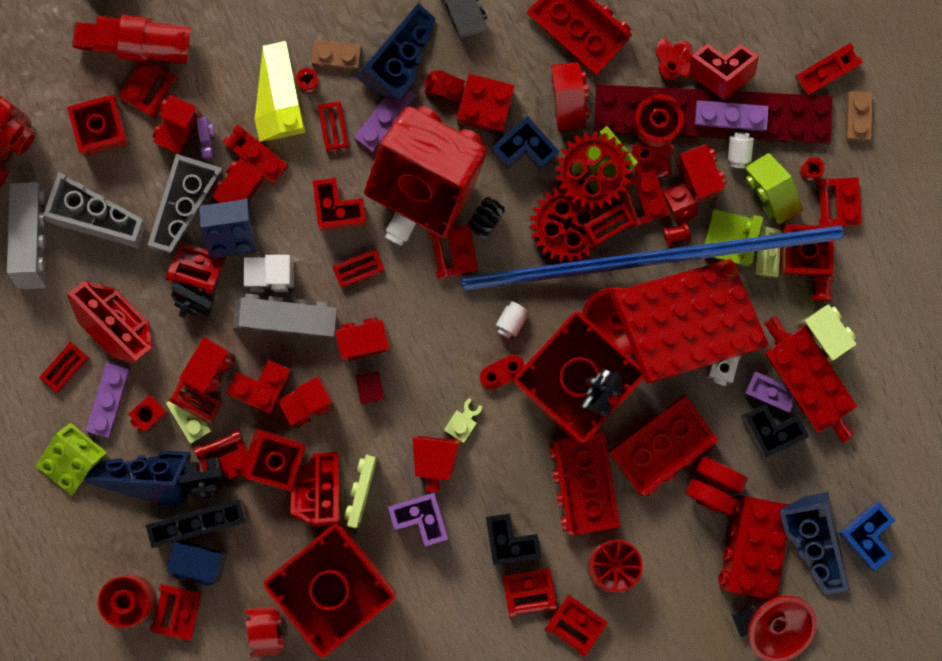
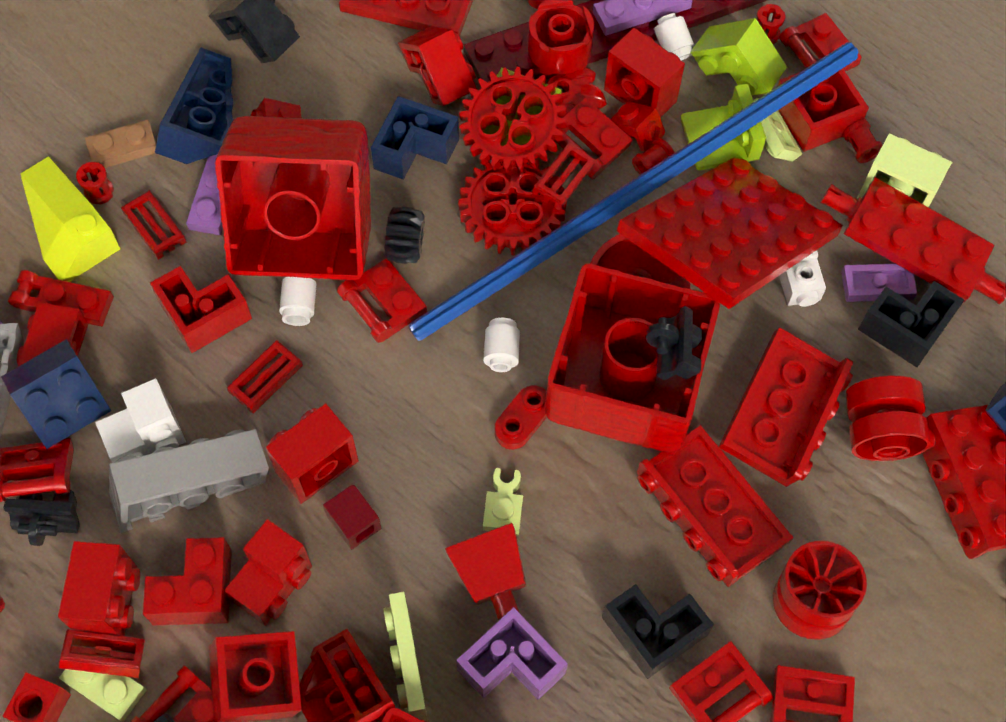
camera: 30 degrees left, 20 degrees down
(485, 104) = (339, 99): red brick -> none

